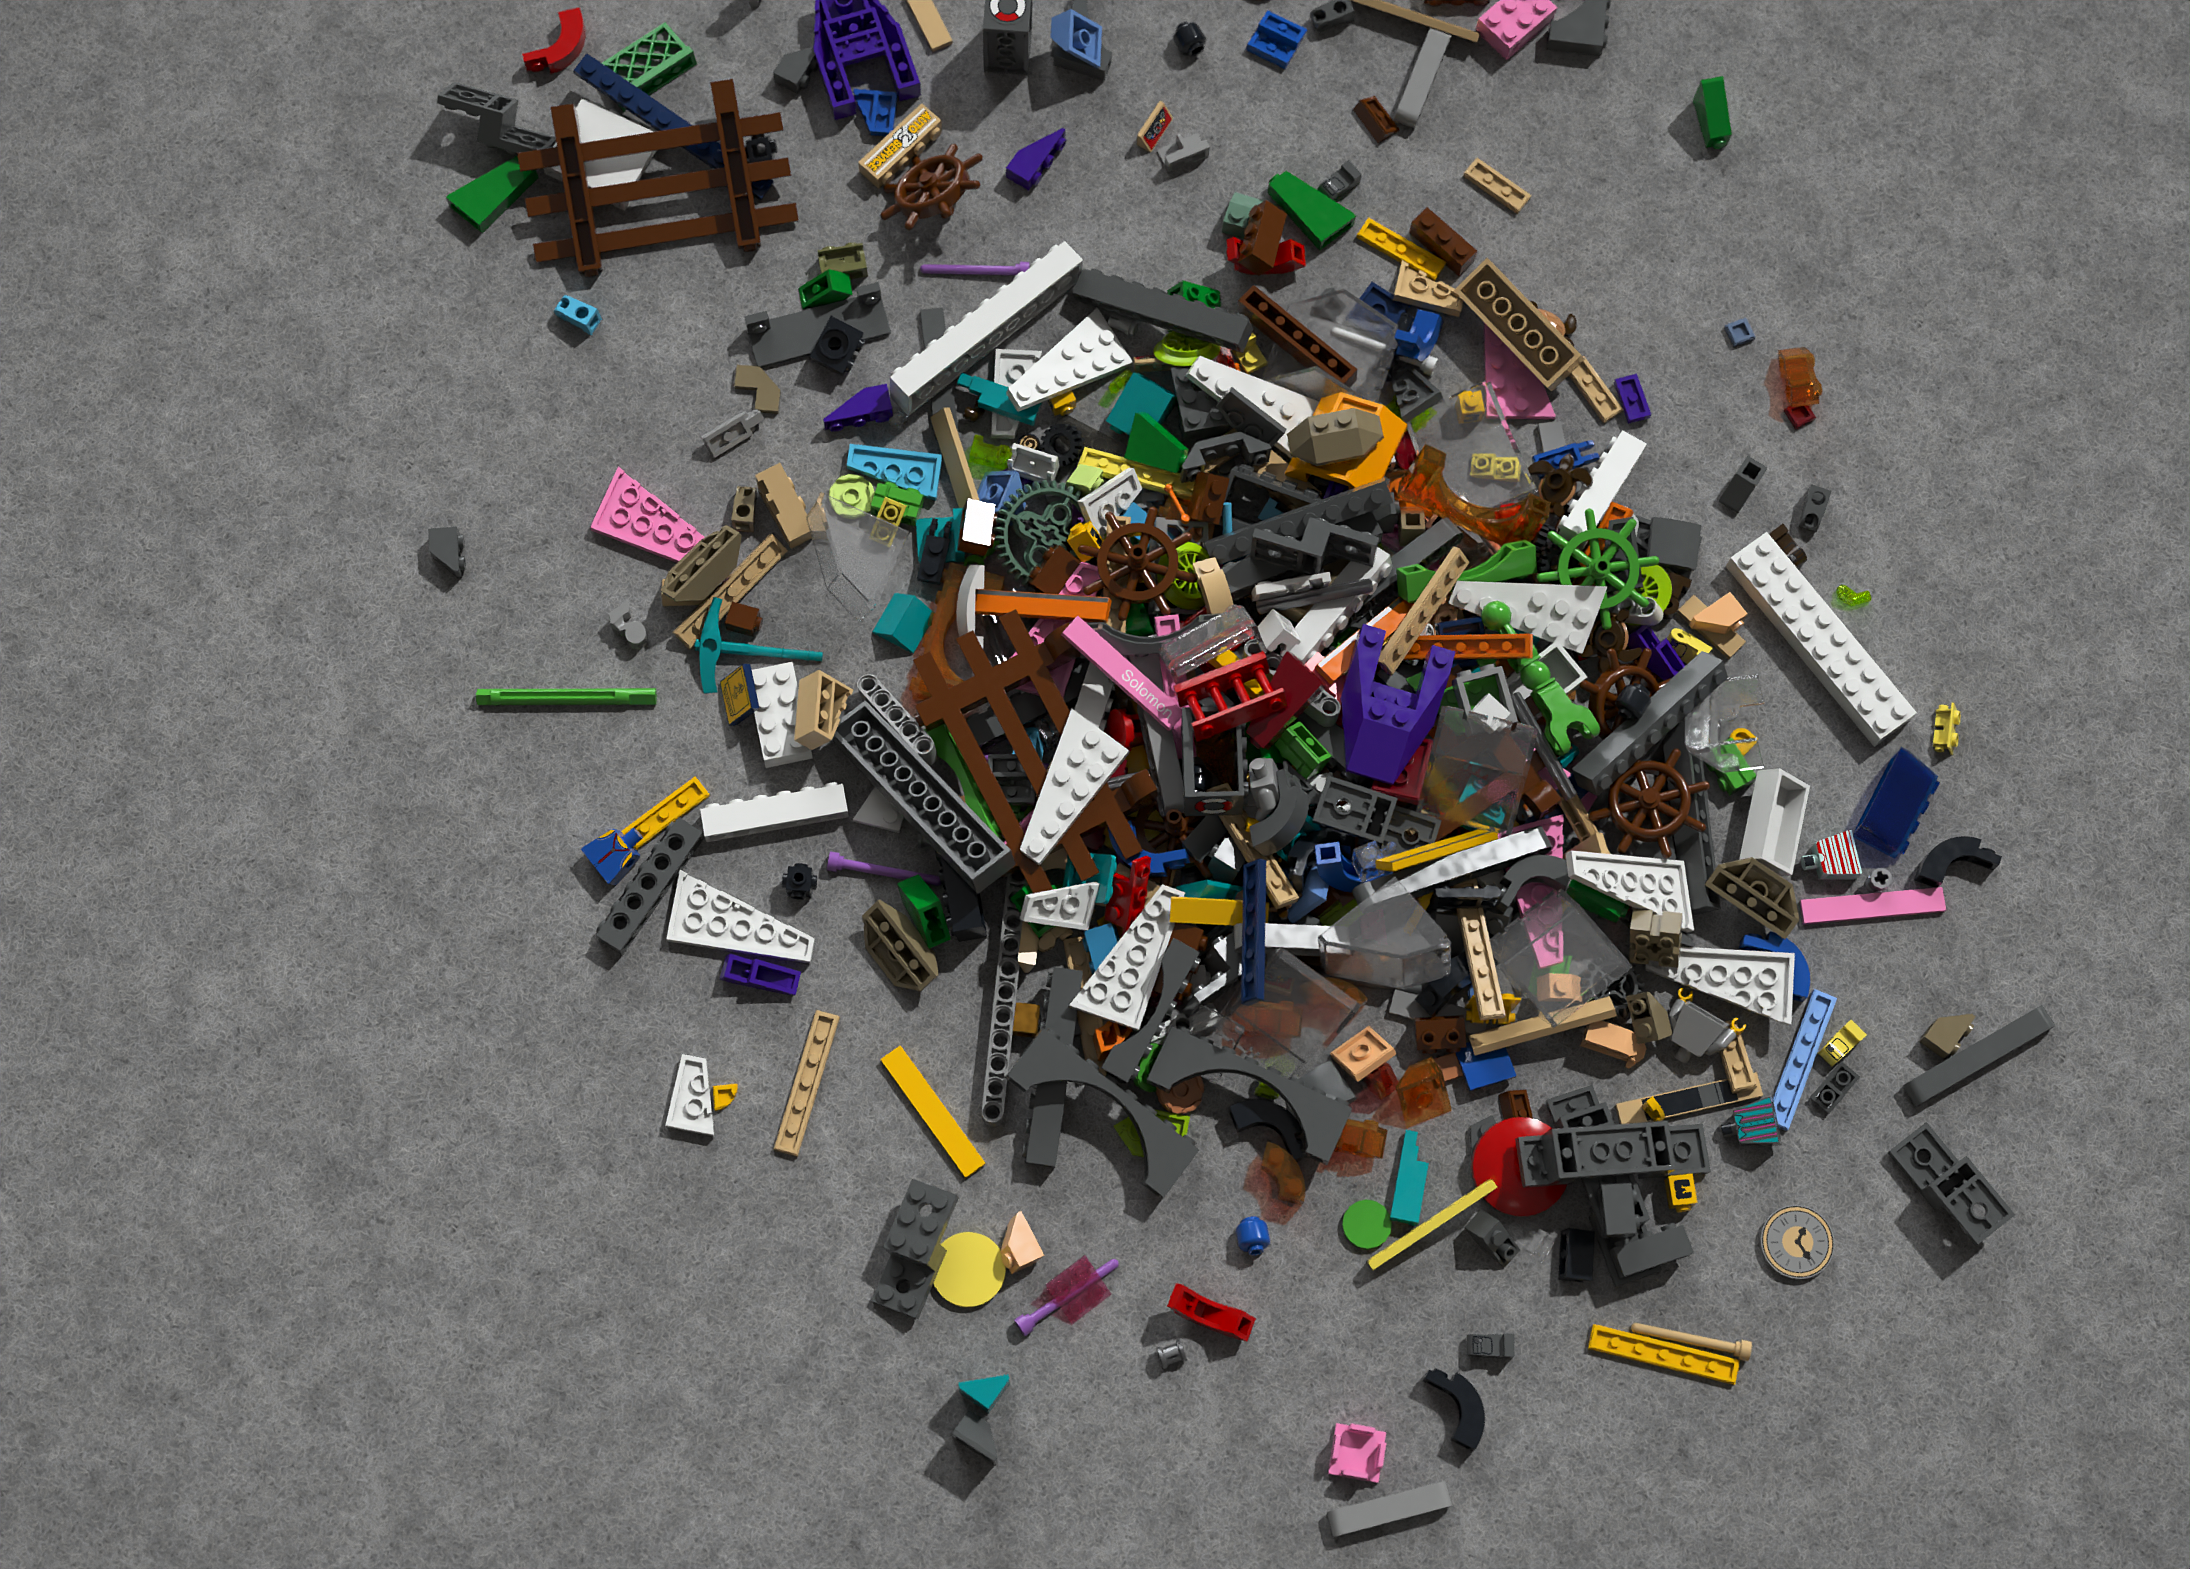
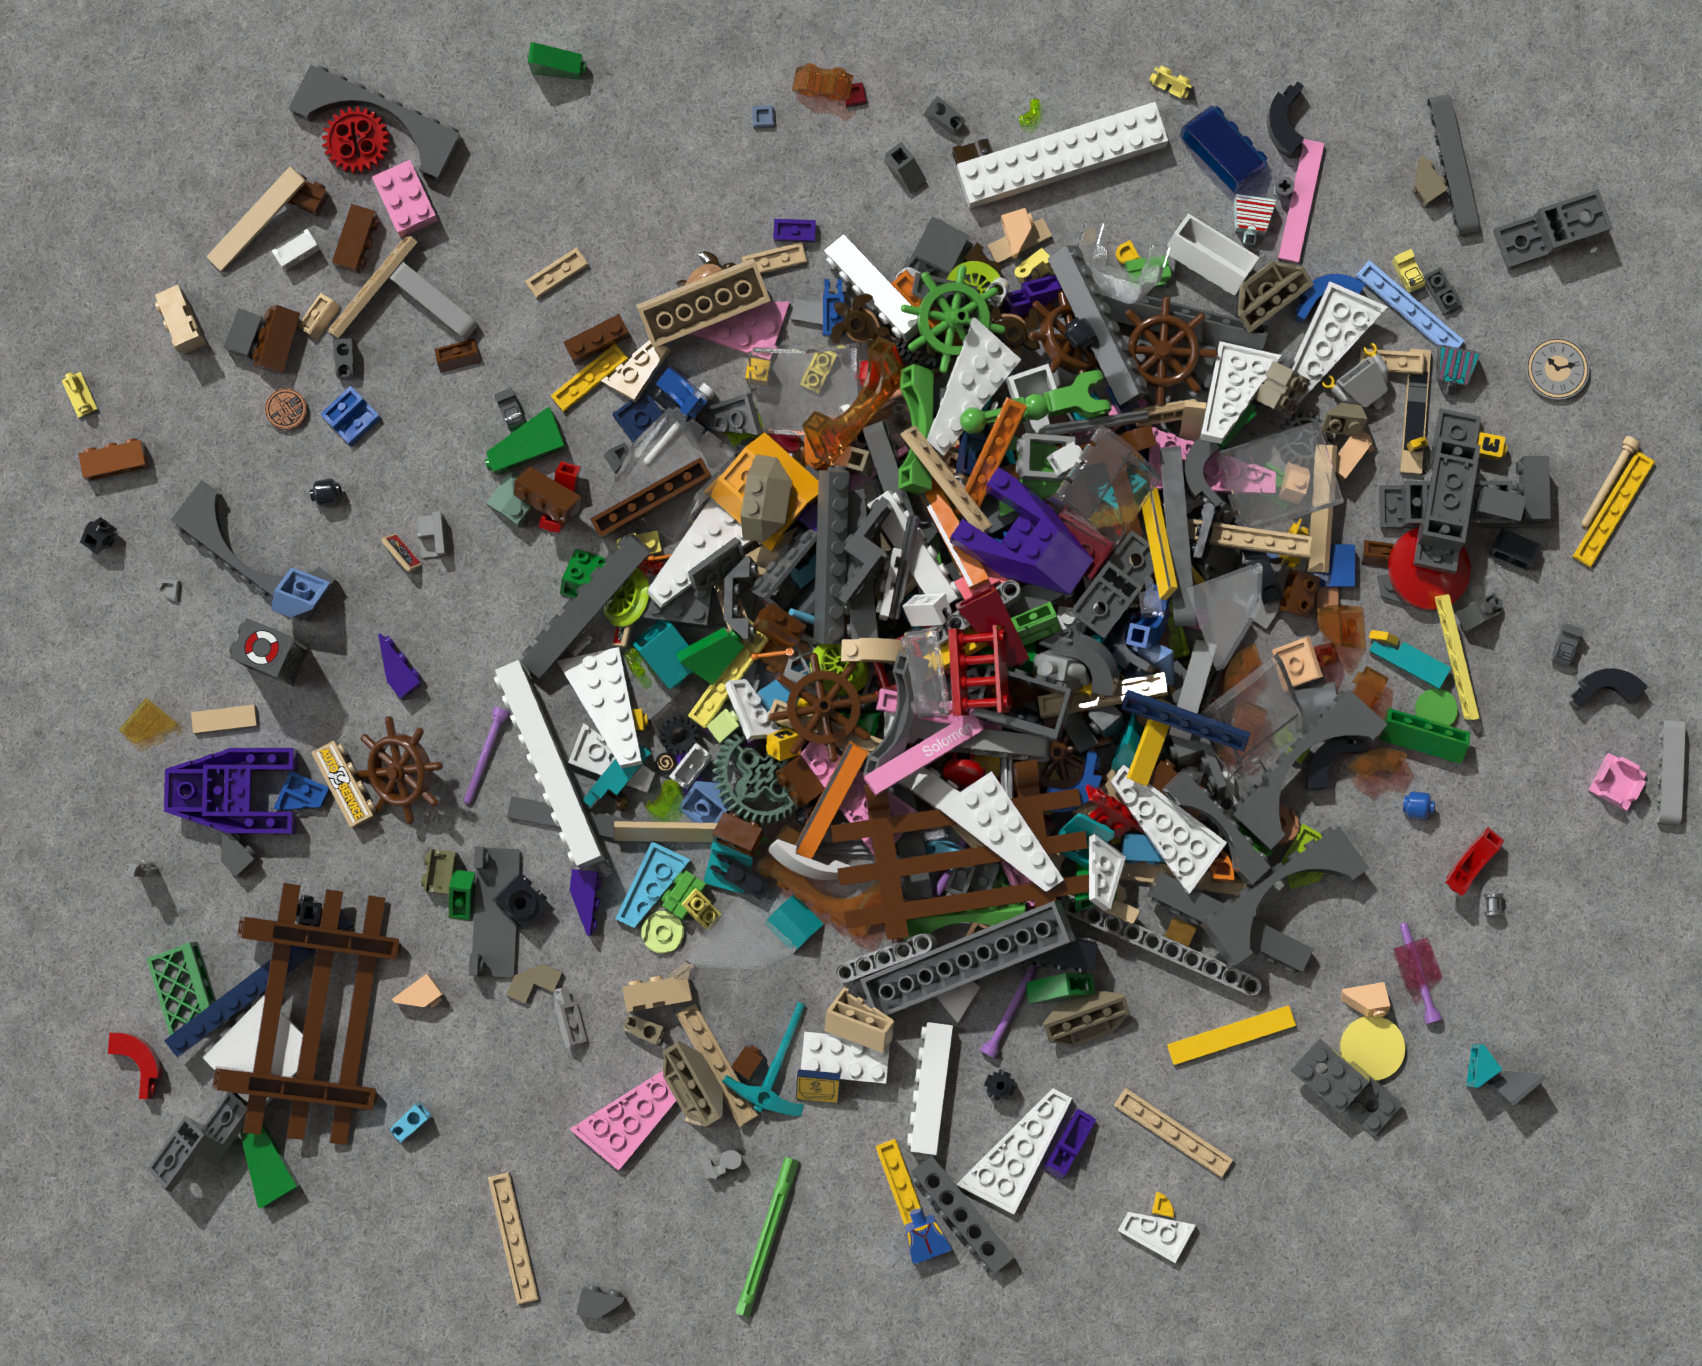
camera: 65 degrees left, 10 degrees up
(489, 449) = (513, 1238): none -> tan tile
(713, 283) = (421, 993): none -> light nougat slope
(1332, 1217) = (1425, 736): none -> green brick
(1426, 1142) = (1384, 637): none -> yellow tile

